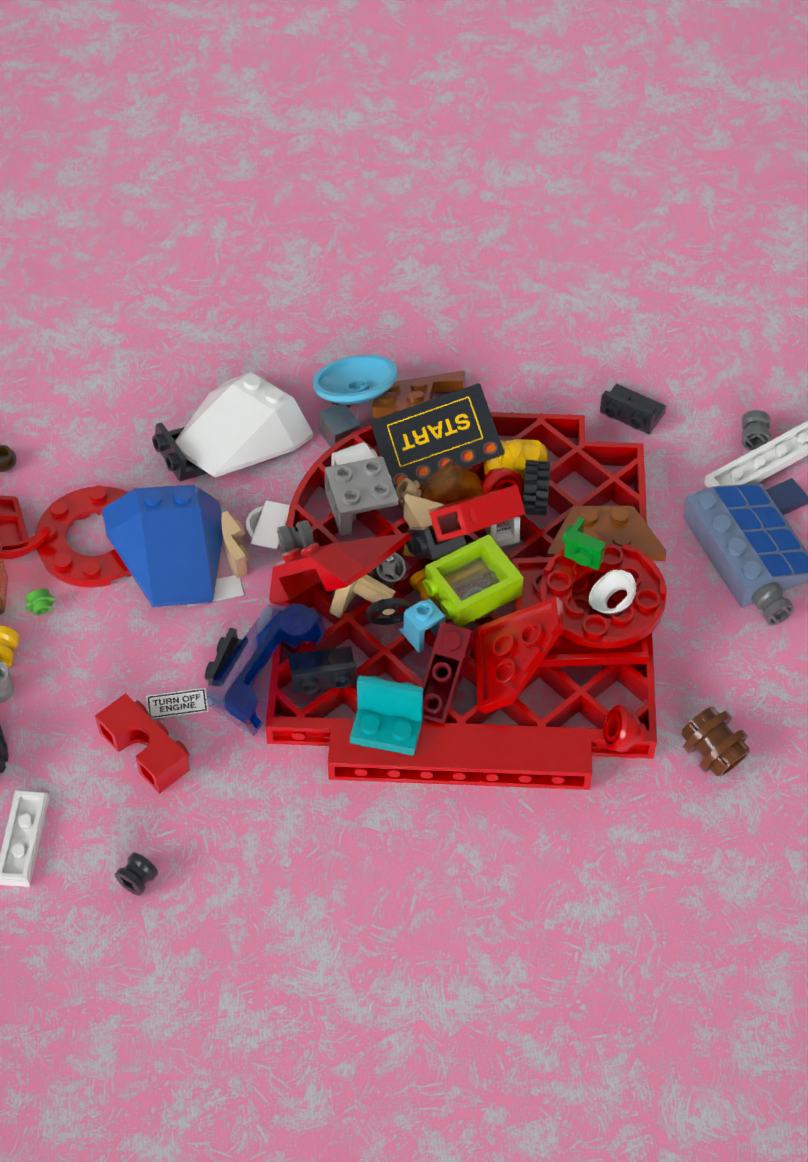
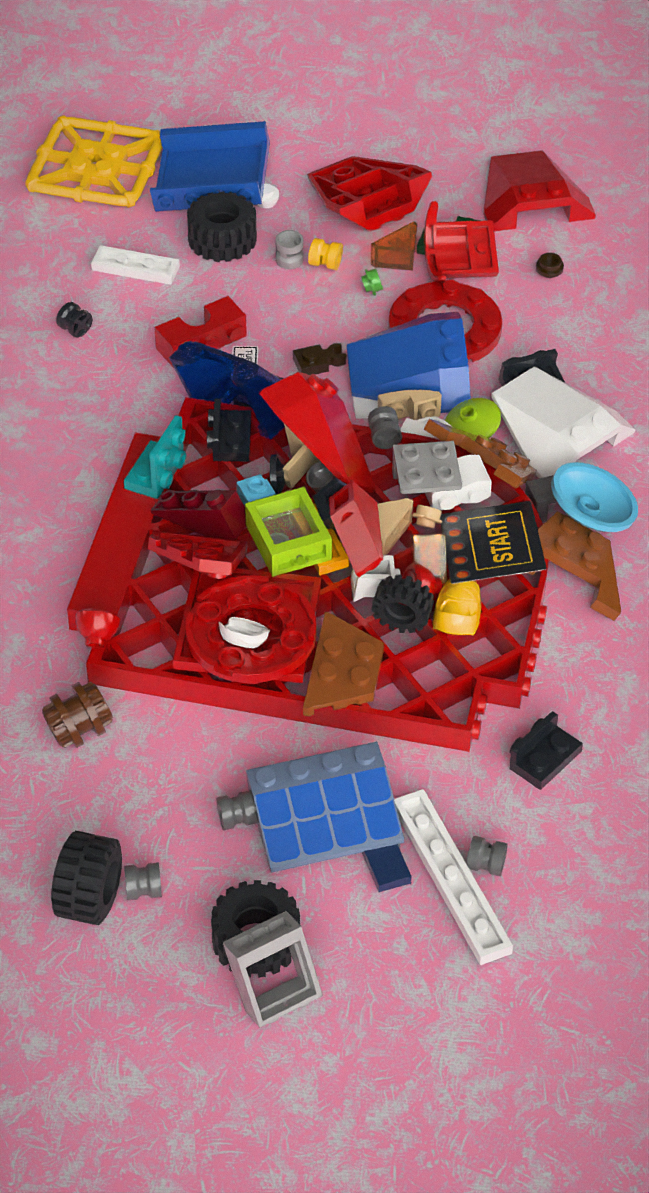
camera: 100 degrees right, 5 degrees down
(165, 638) = (317, 360): none -> dark brown plate
(228, 496) = (475, 417): none -> lime dish
(298, 468) = (509, 467): none -> dark orange wing
(582, 547) = (297, 601): green bracket -> none

